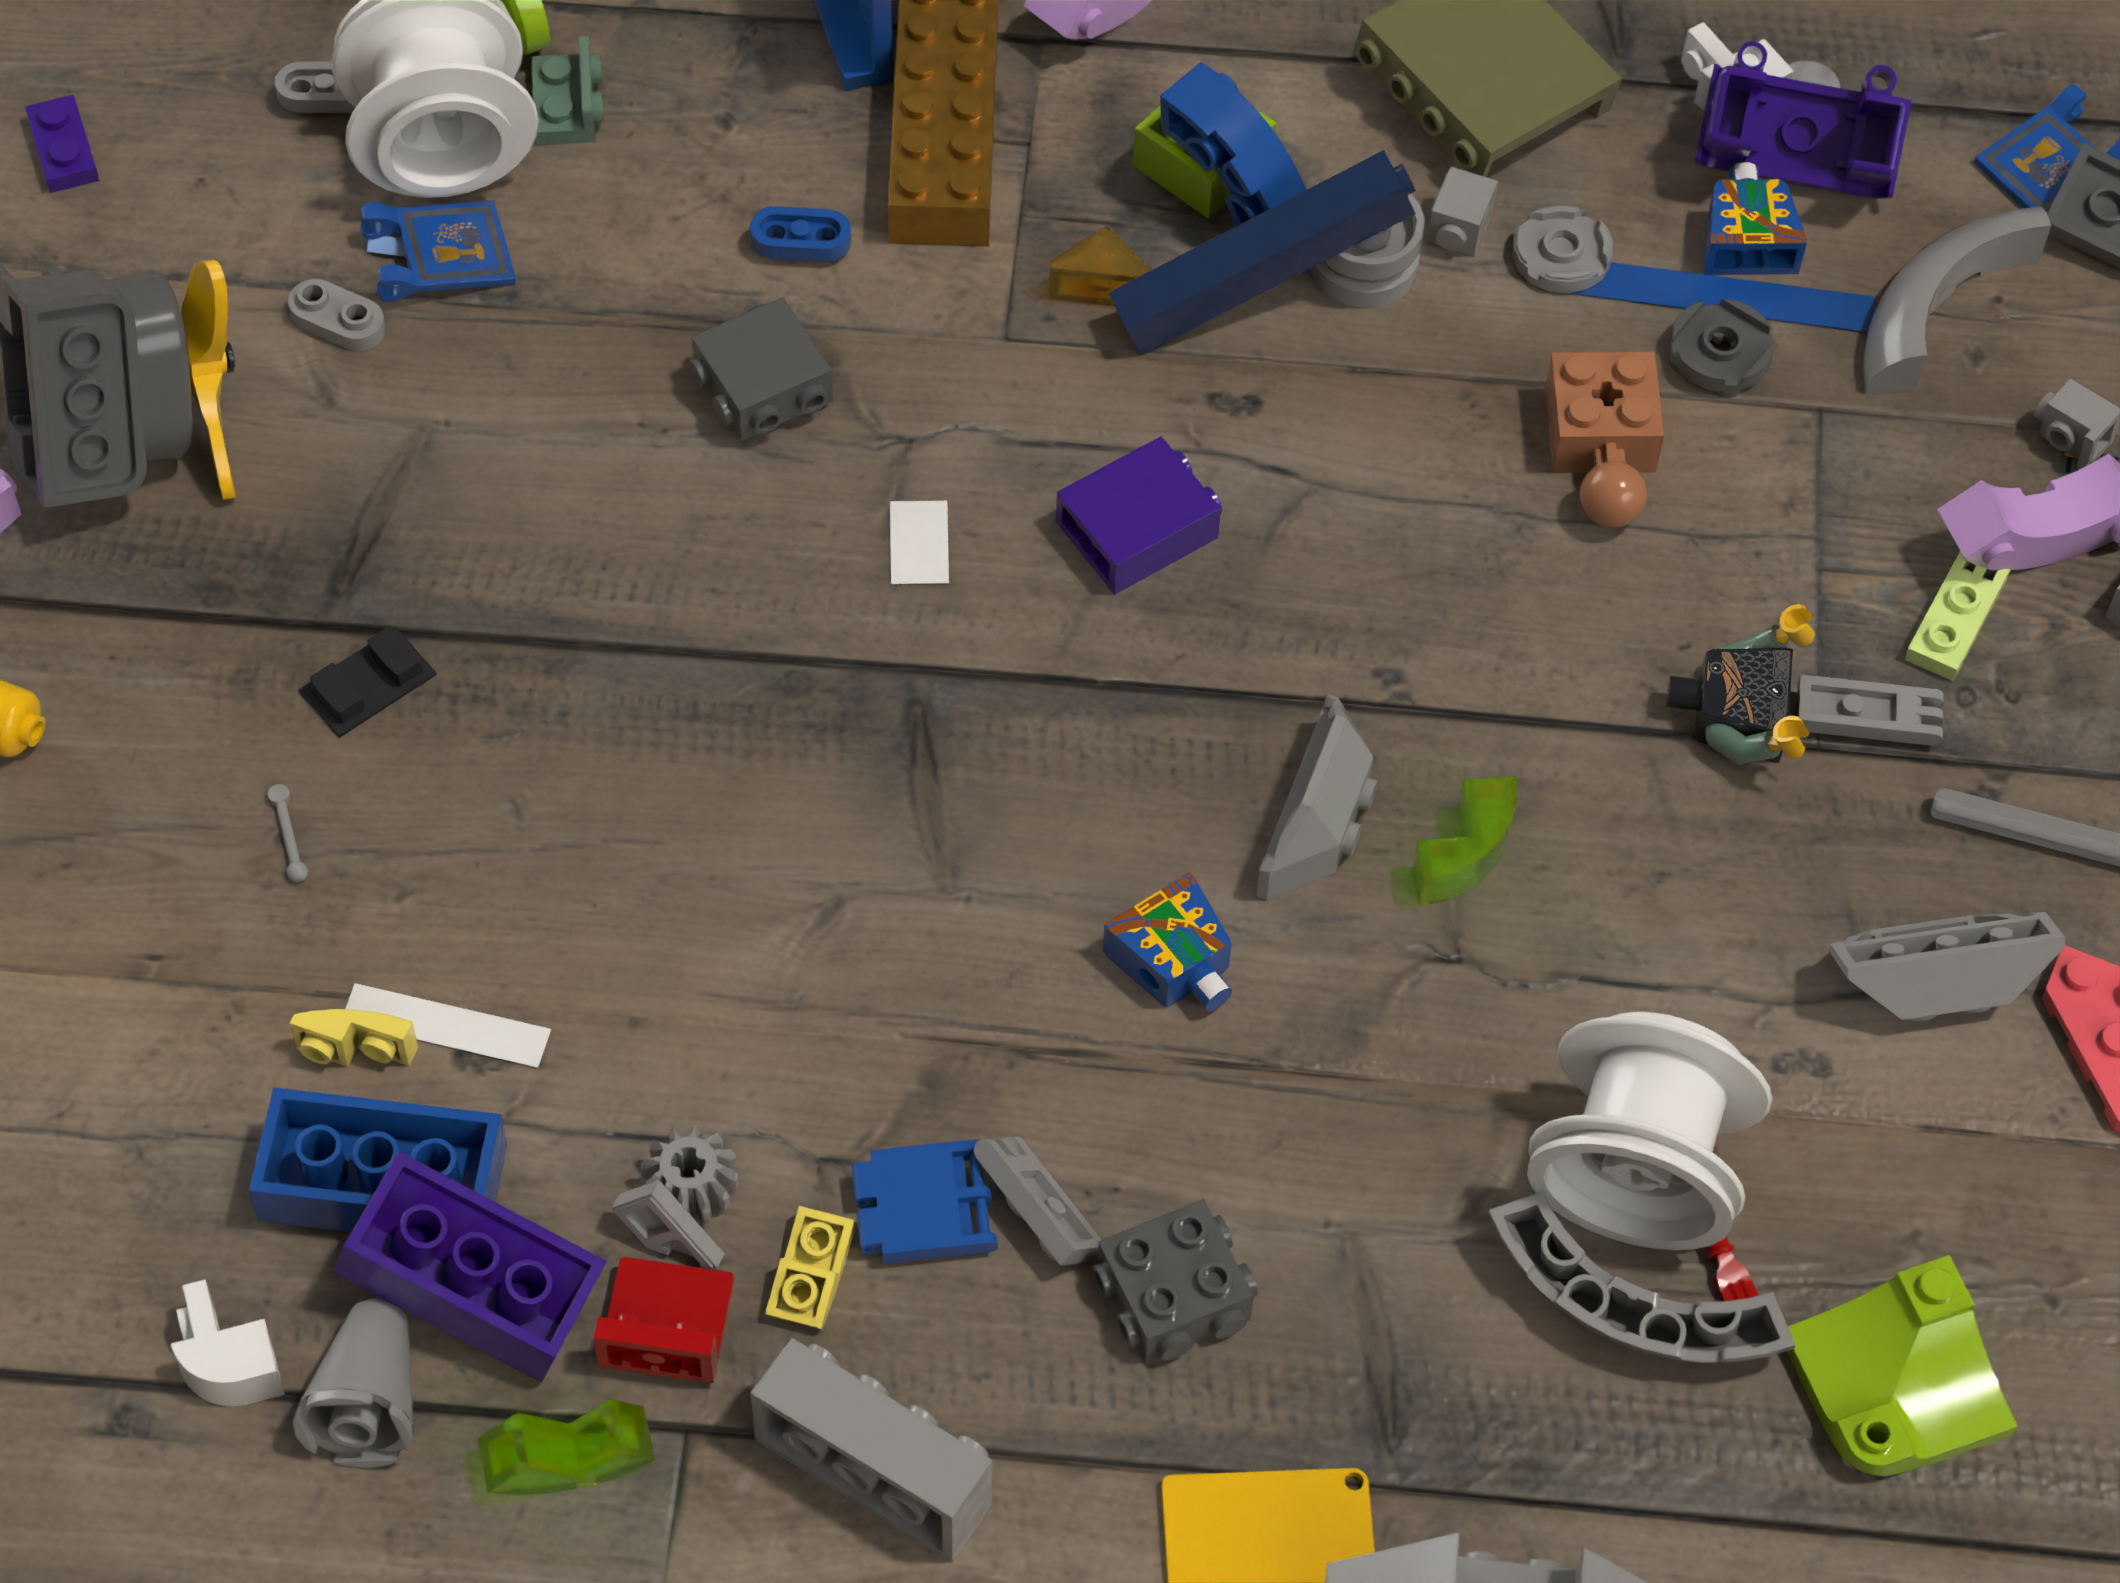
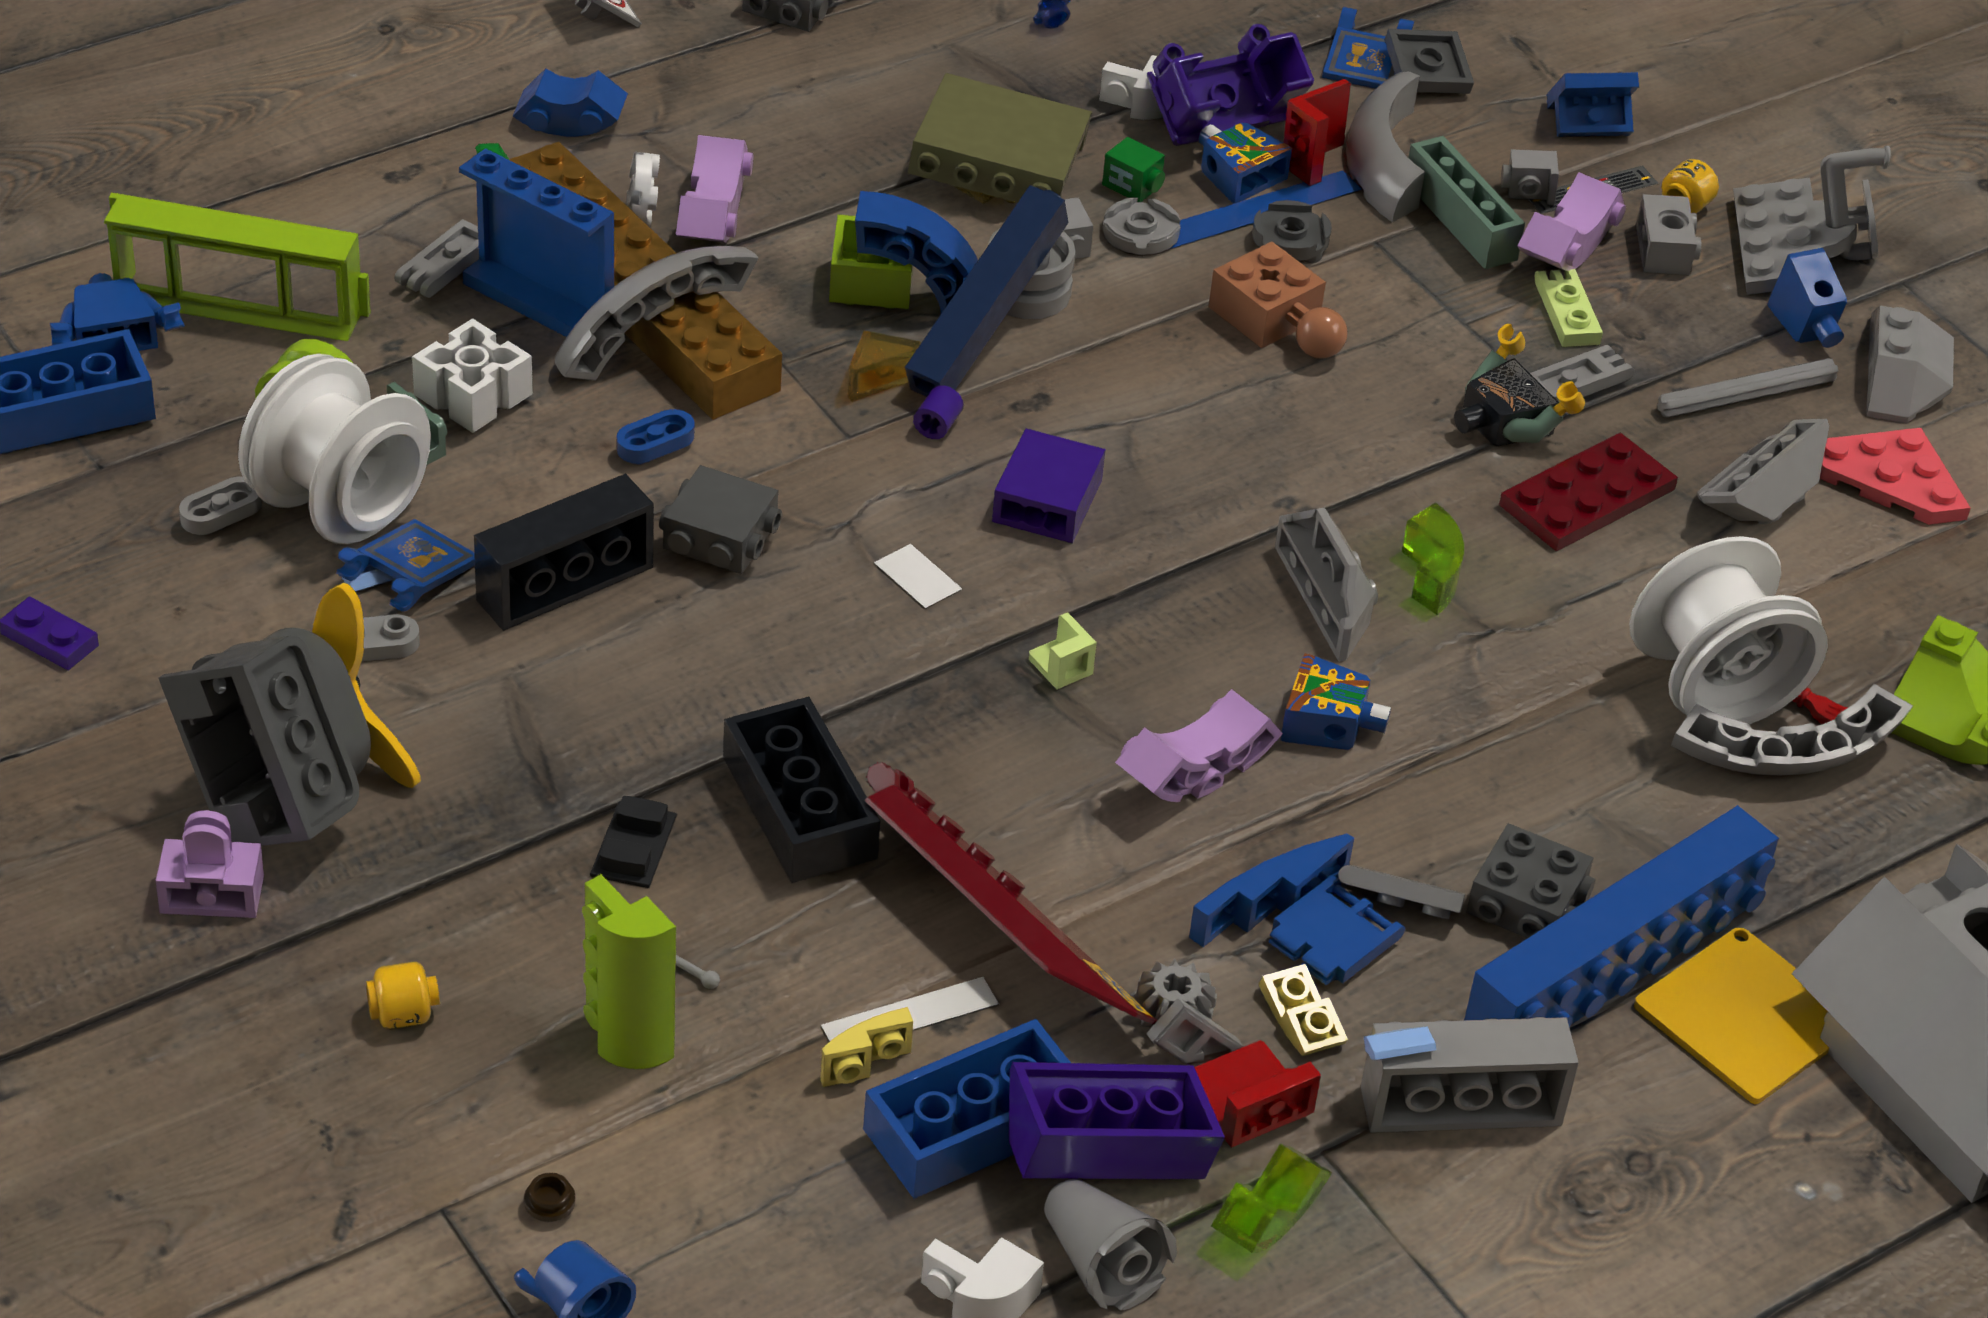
camera: 40 degrees left, 15 degrees down
(151, 831) = (629, 977): none -> lime brick
(546, 721) = (801, 789): none -> black brick
(567, 322) = (564, 551): none -> black brick
(605, 959) = (993, 893): none -> dark red hinge
(676, 67) = (472, 375): none -> white brick
(788, 1376) = (1399, 1043): none -> light blue piece
(903, 1111) = (1269, 886): none -> blue slope
(905, 68) = (645, 296): none -> light grey brick
(963, 724) = (1067, 657): none -> yellowish green panel
(975, 920) = (1202, 752): none -> lavender brick
(1110, 363) = (938, 412): none -> dark purple gear
(1195, 1402) = (1631, 926): none -> blue brick
(1613, 174) = (1133, 169): none -> green brick
(1739, 857) = (1588, 491): none -> dark red plate
(1863, 227) = (1315, 126): none -> red bracket
(1951, 412) = (1467, 203): none -> sand green brick

